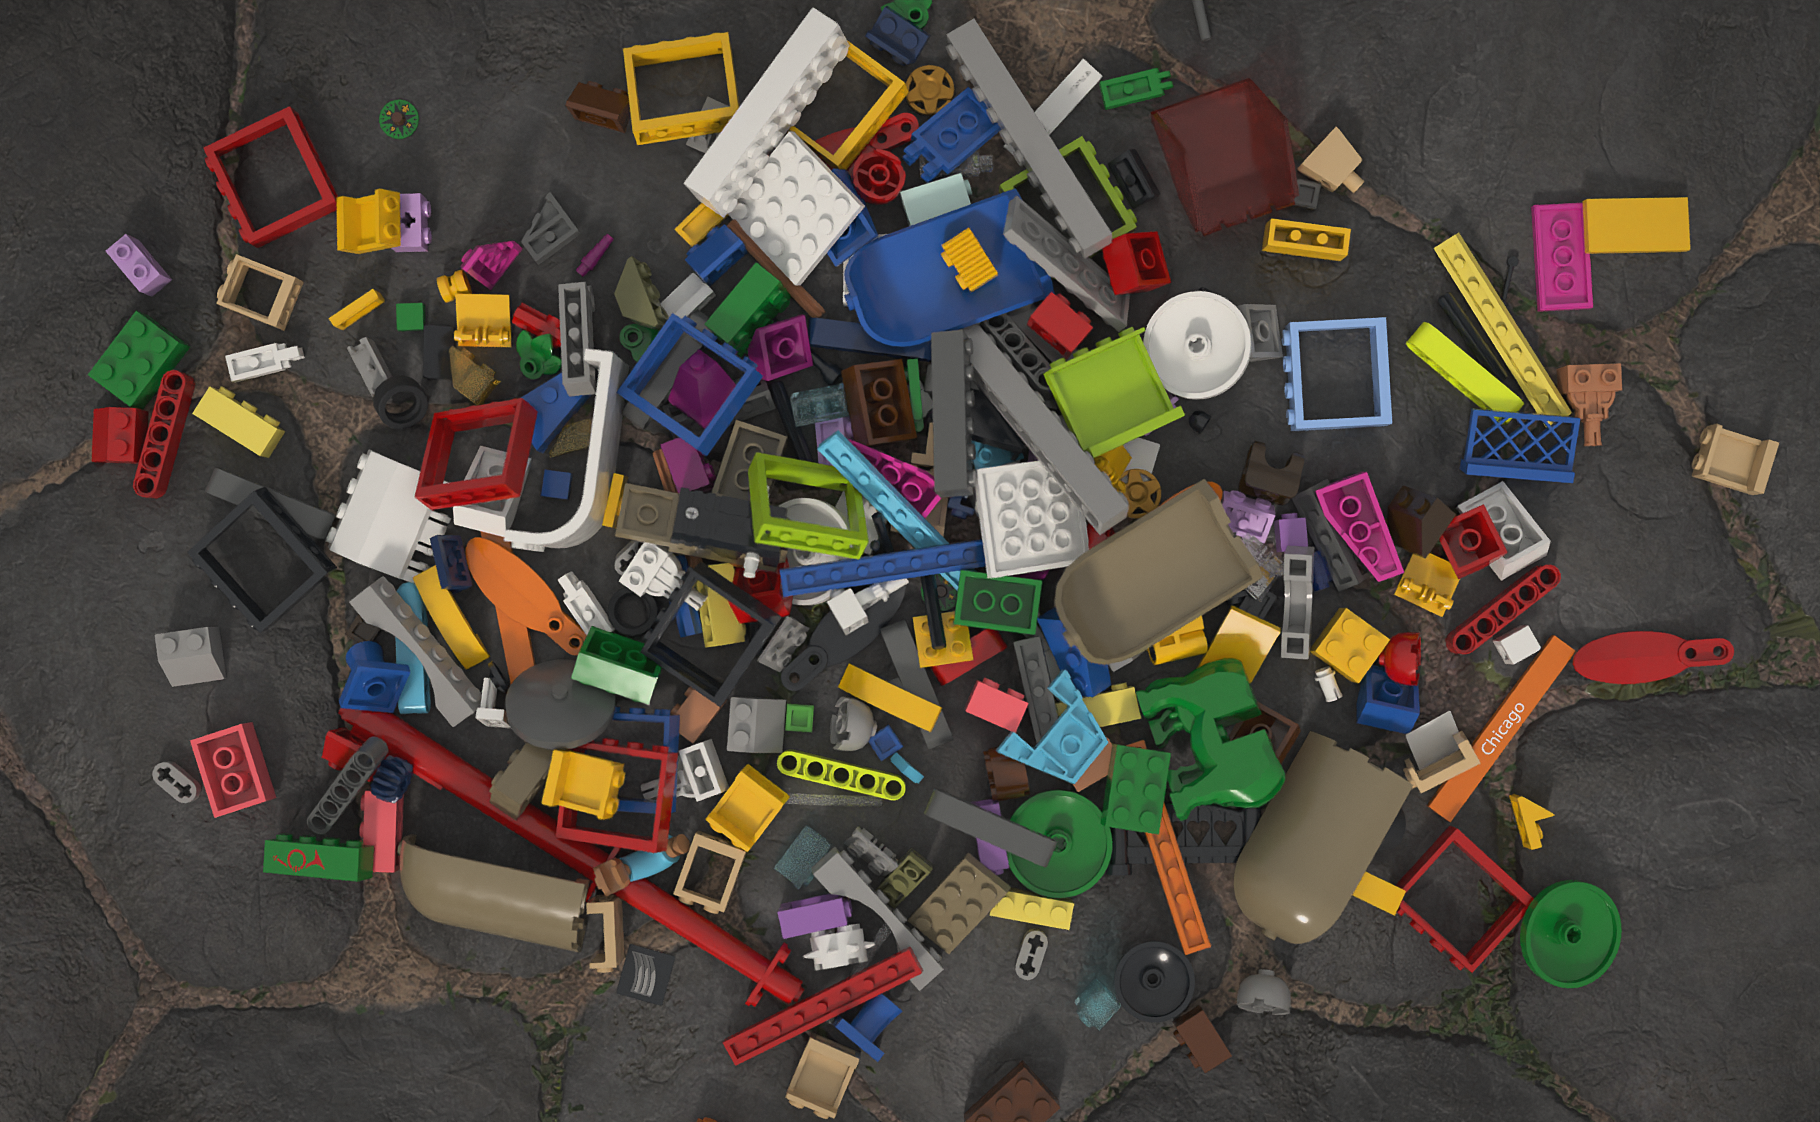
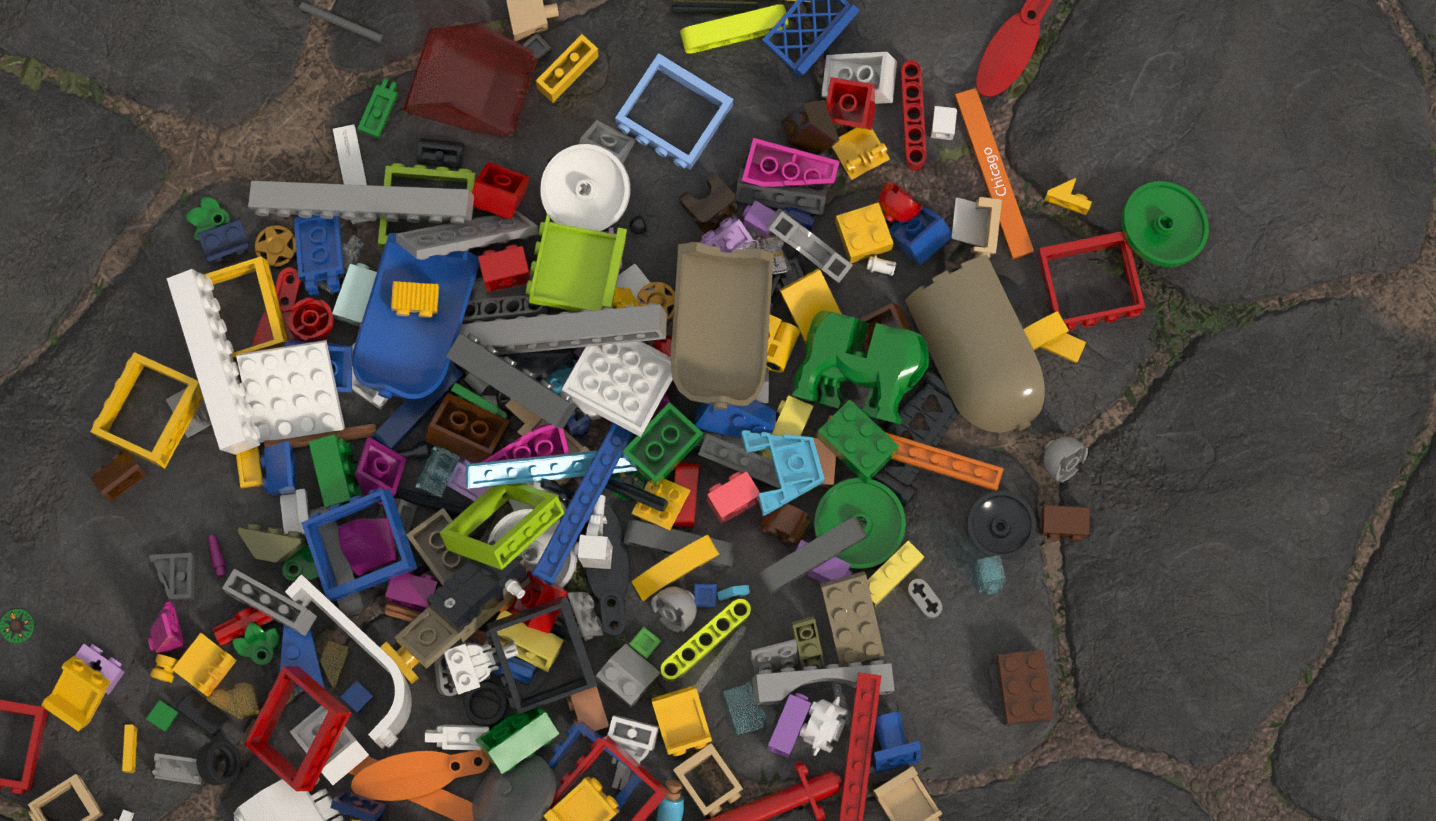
camera: 60 degrees left, 10 degrees down
(1376, 921) = (1066, 347): none -> yellow tile

